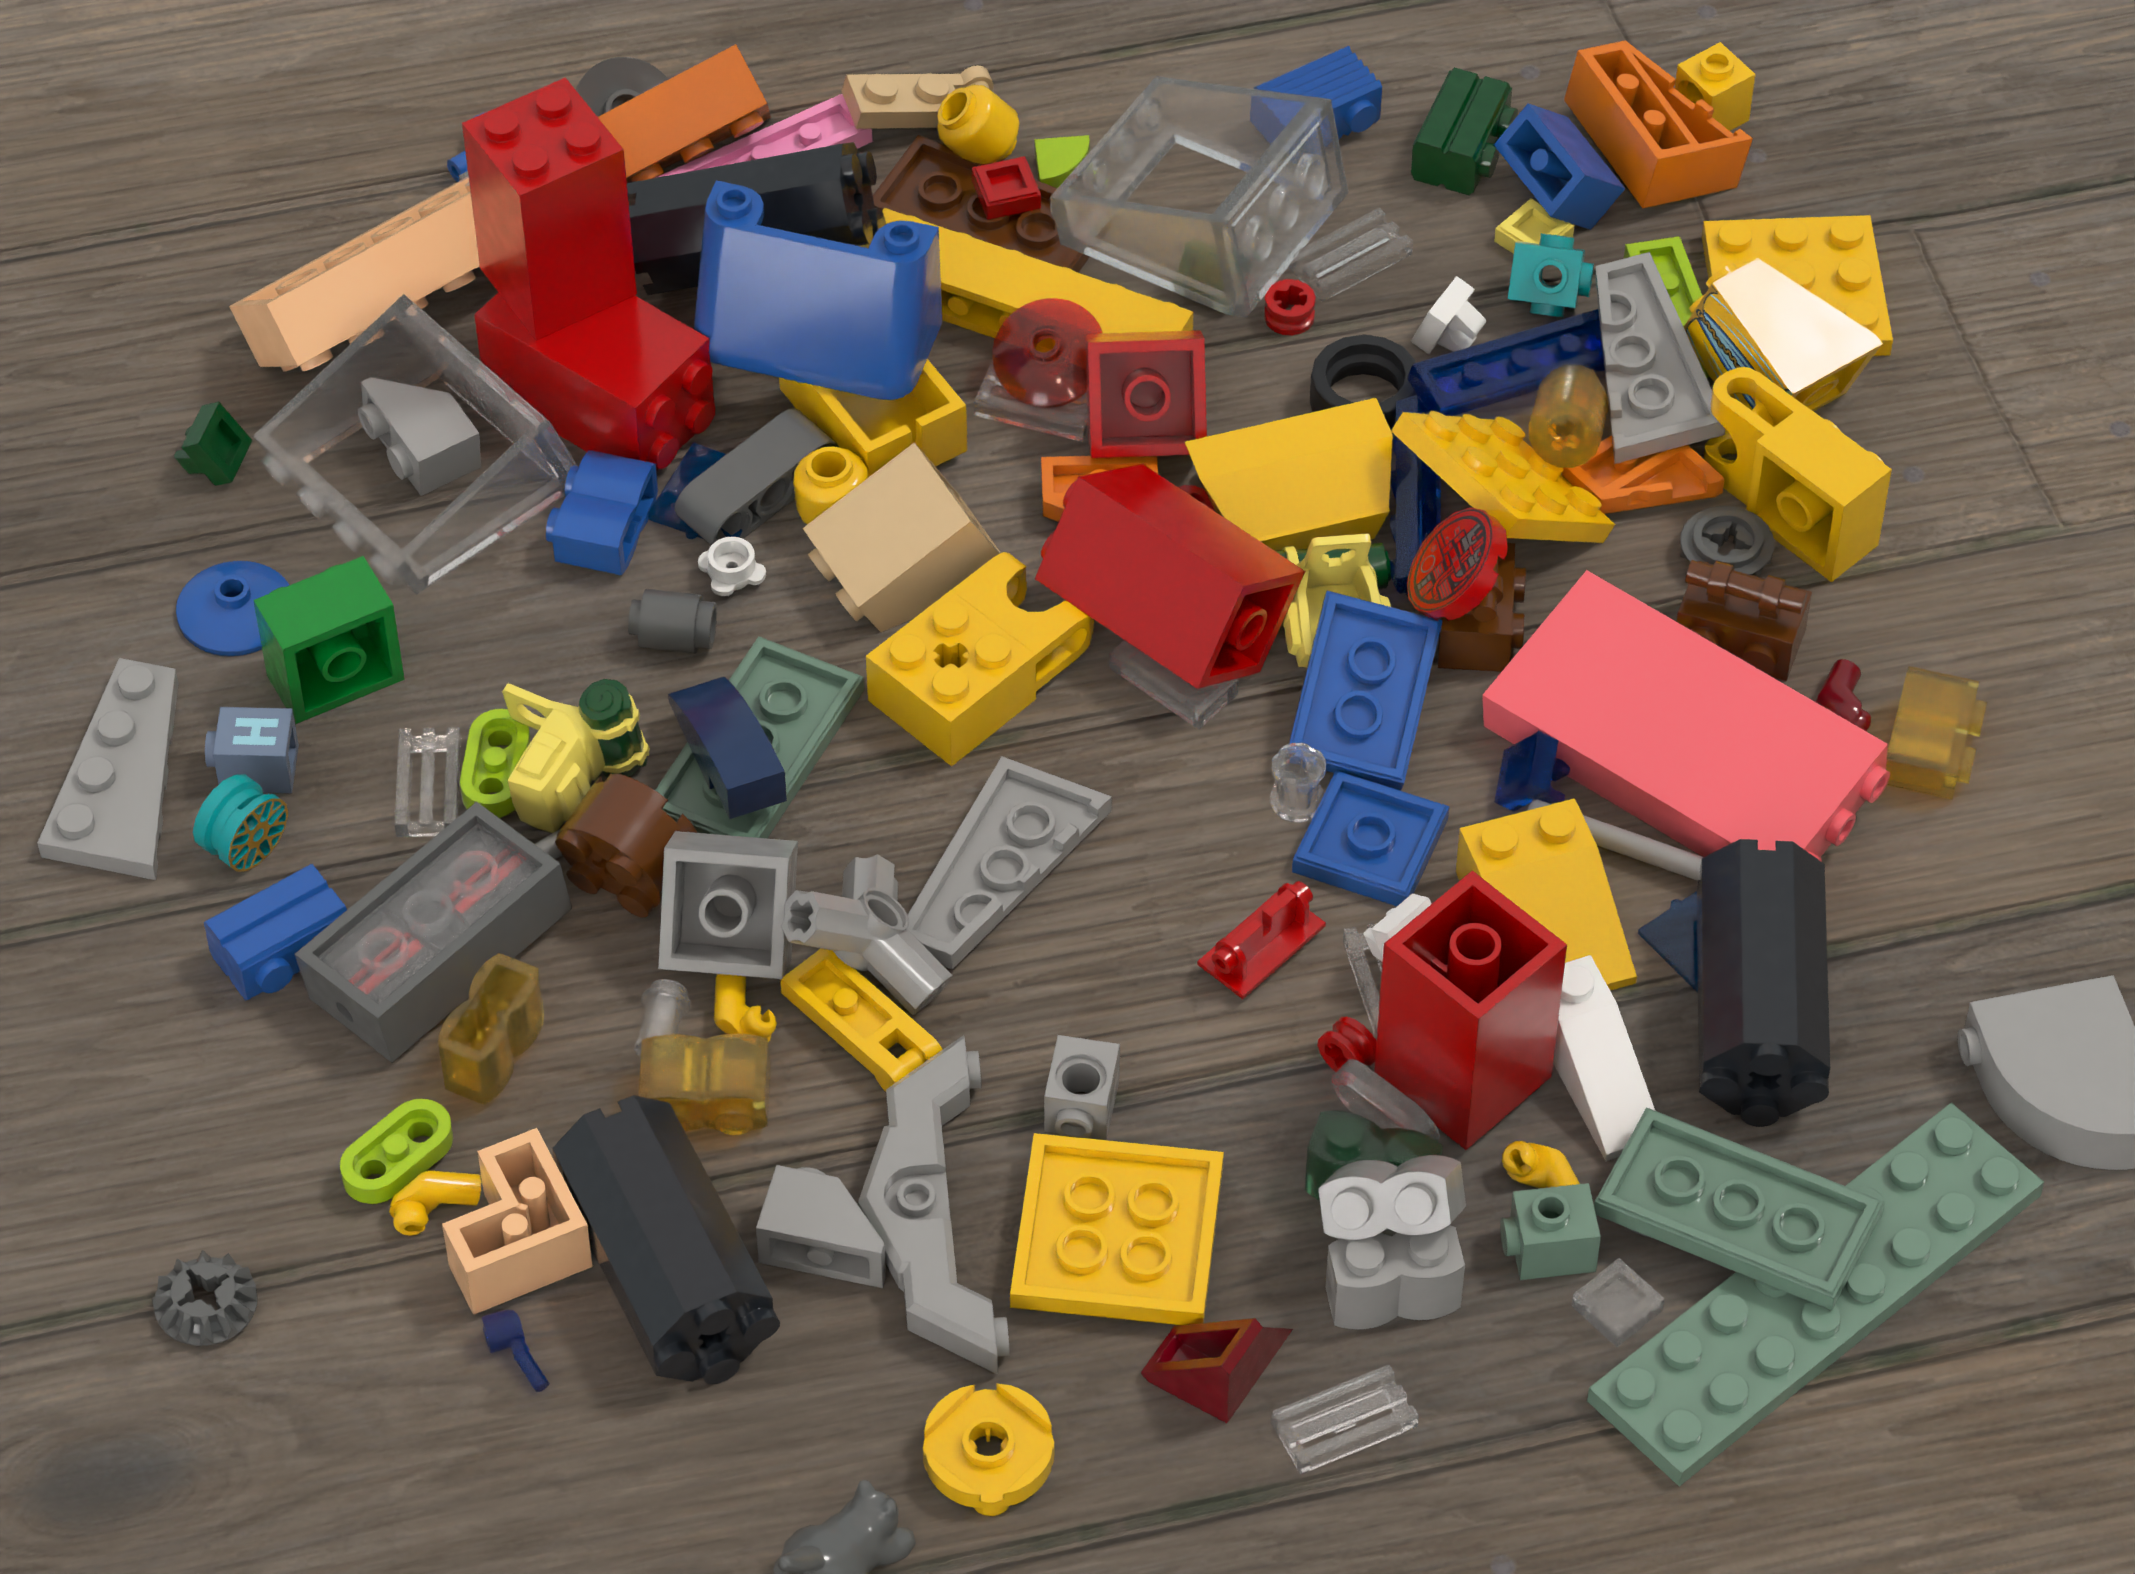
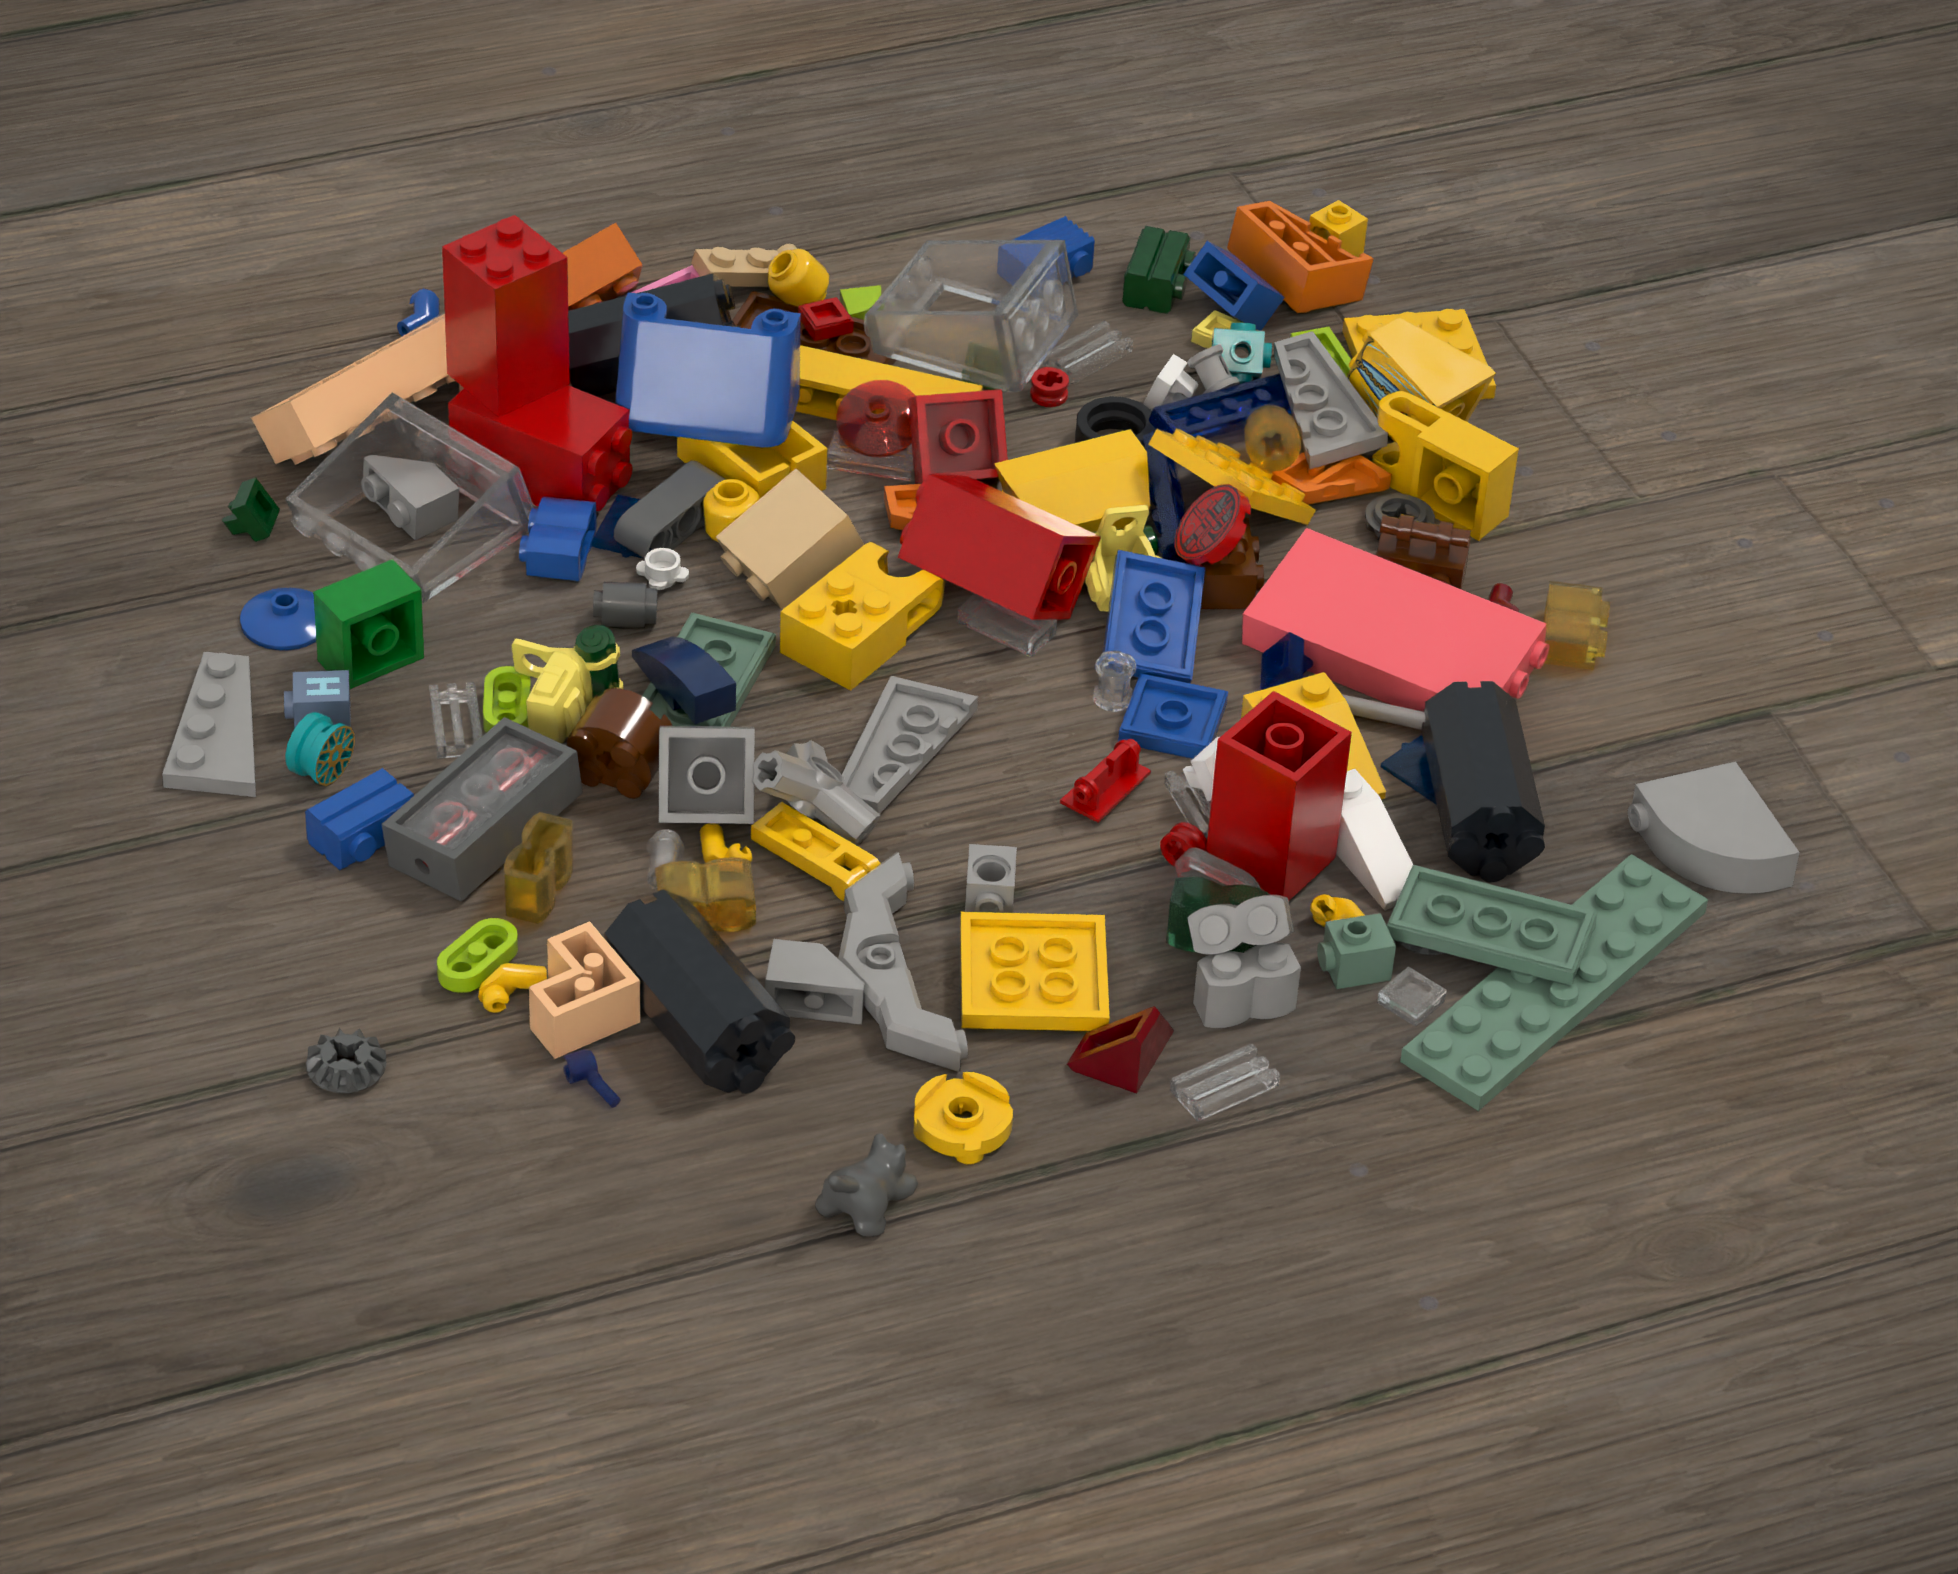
camera: 10 degrees left, 10 degrees down
(1506, 305) = (1212, 369): none -> light grey bush

